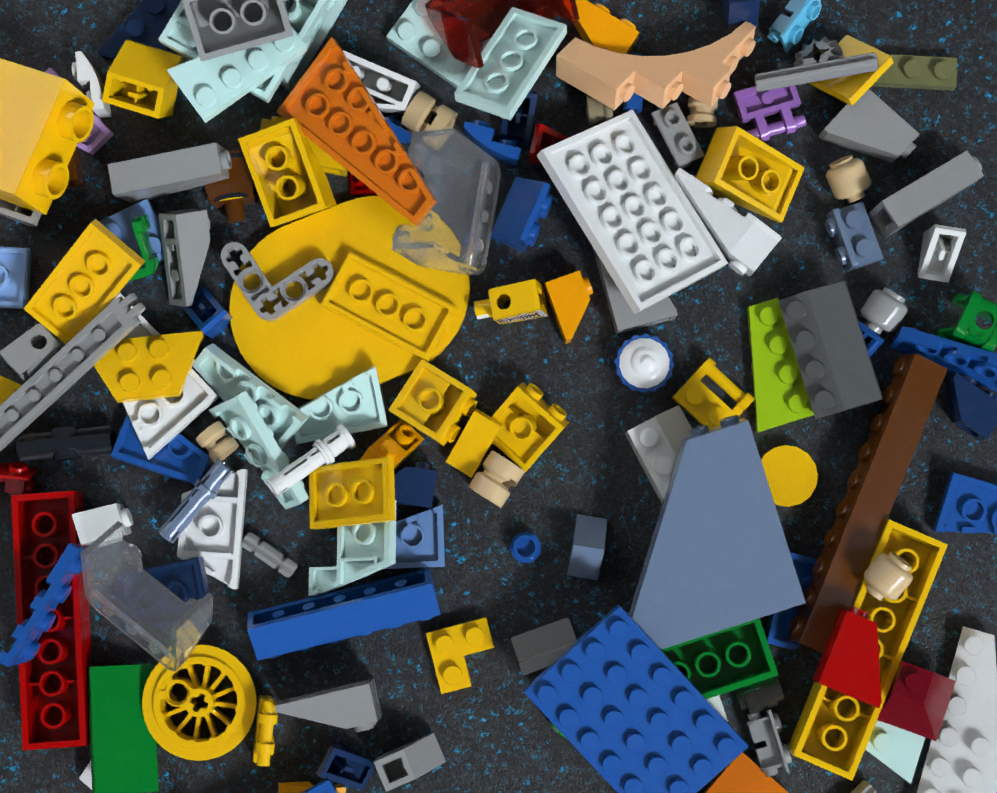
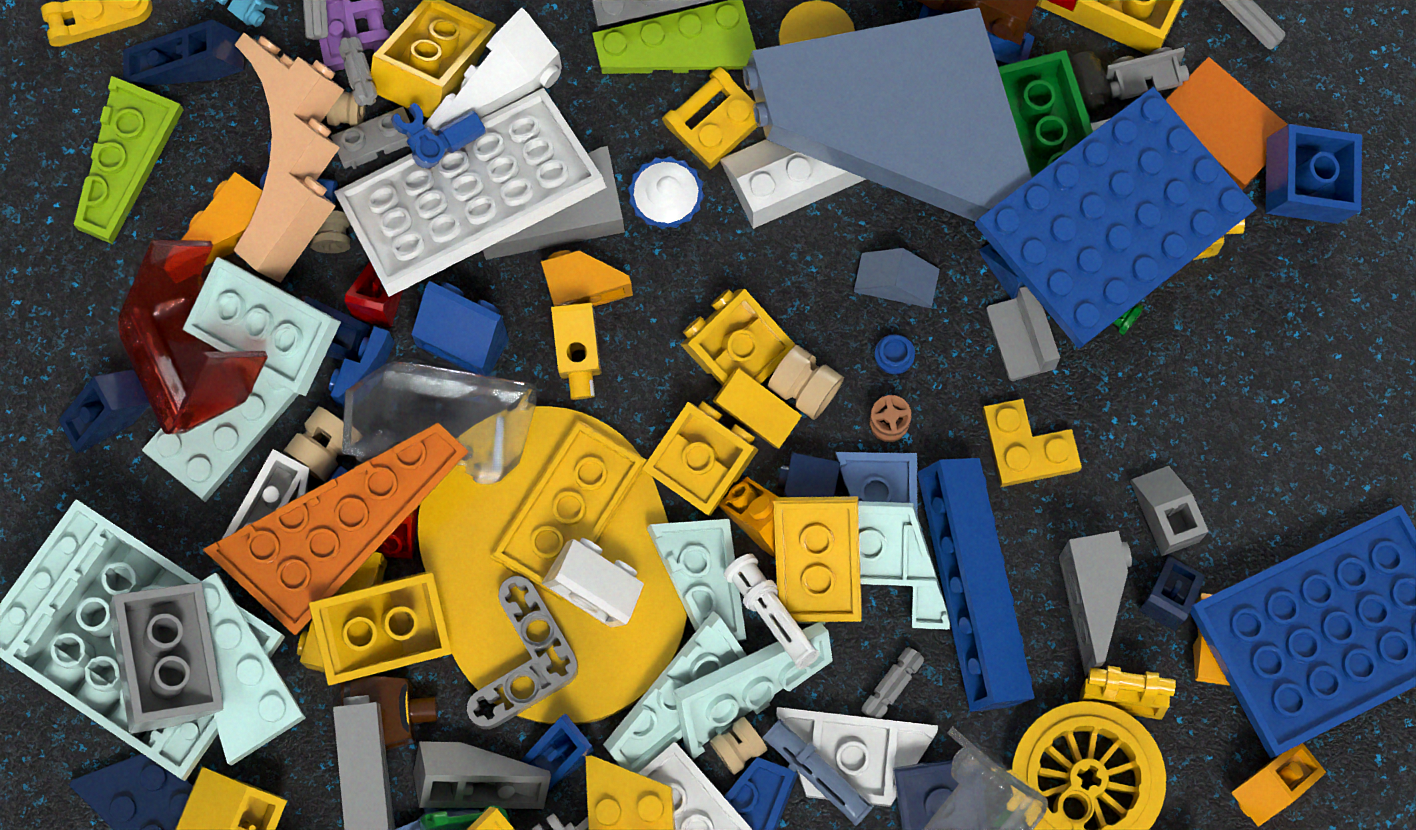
camera: 85 degrees left, 10 degrees down
(324, 327) = (594, 583): none -> white slope
(472, 548) = (890, 409): none -> nougat wheel
(677, 195) = (429, 148): none -> blue bar
(728, 117) = (358, 71): none -> light grey axle

